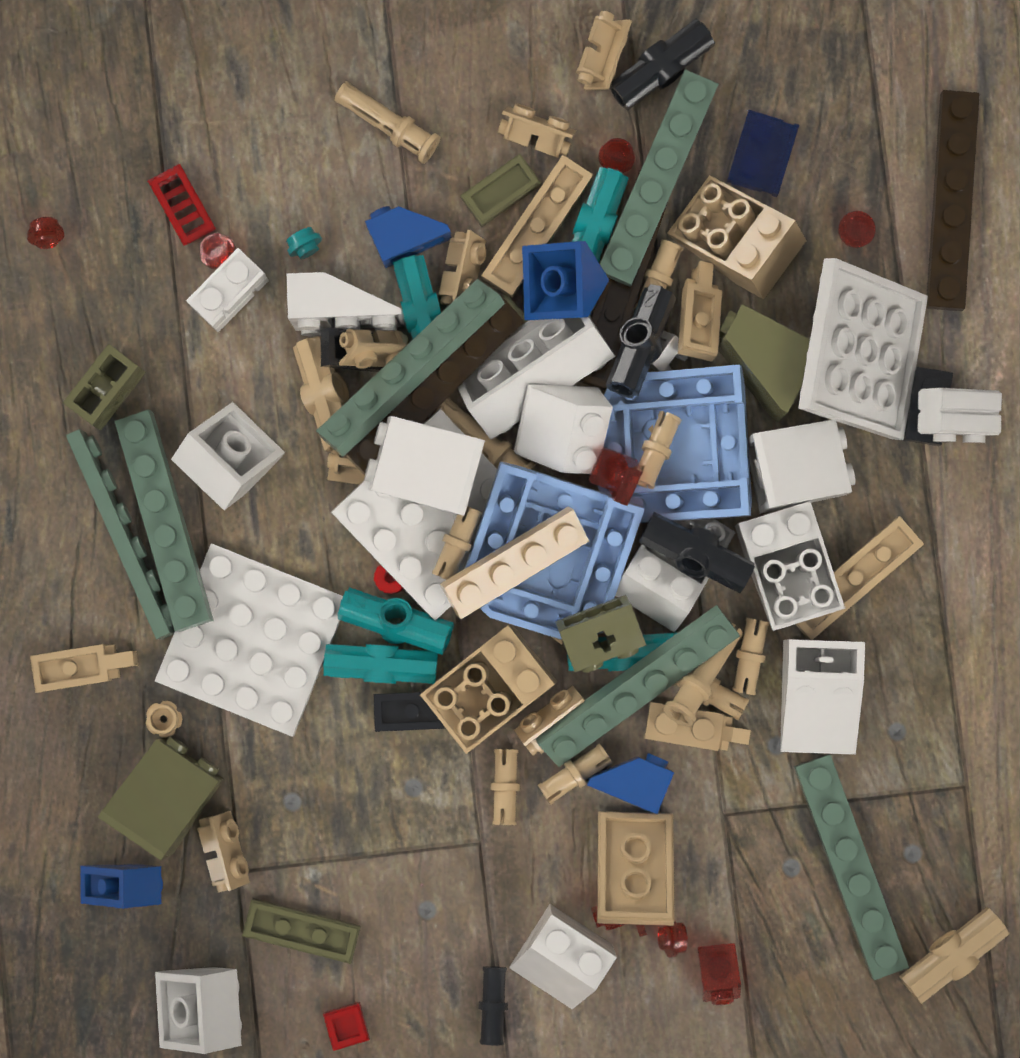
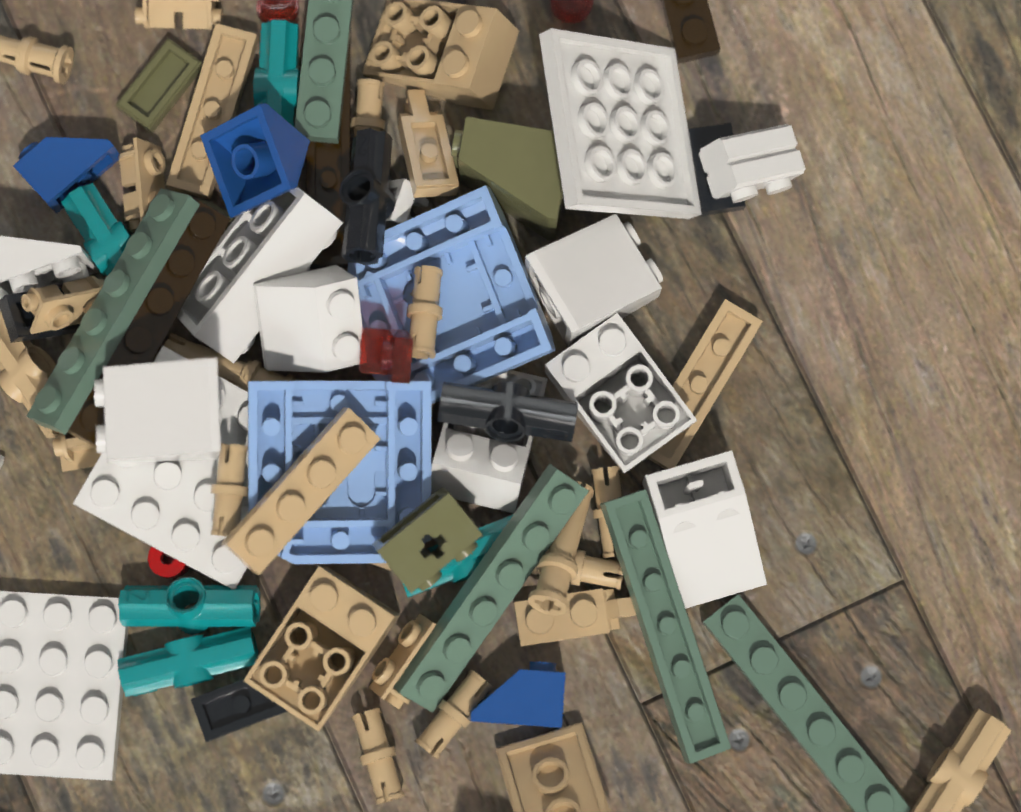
camera: 20 degrees left, 5 degrees down
(764, 761) = (665, 626): none -> sand green plate

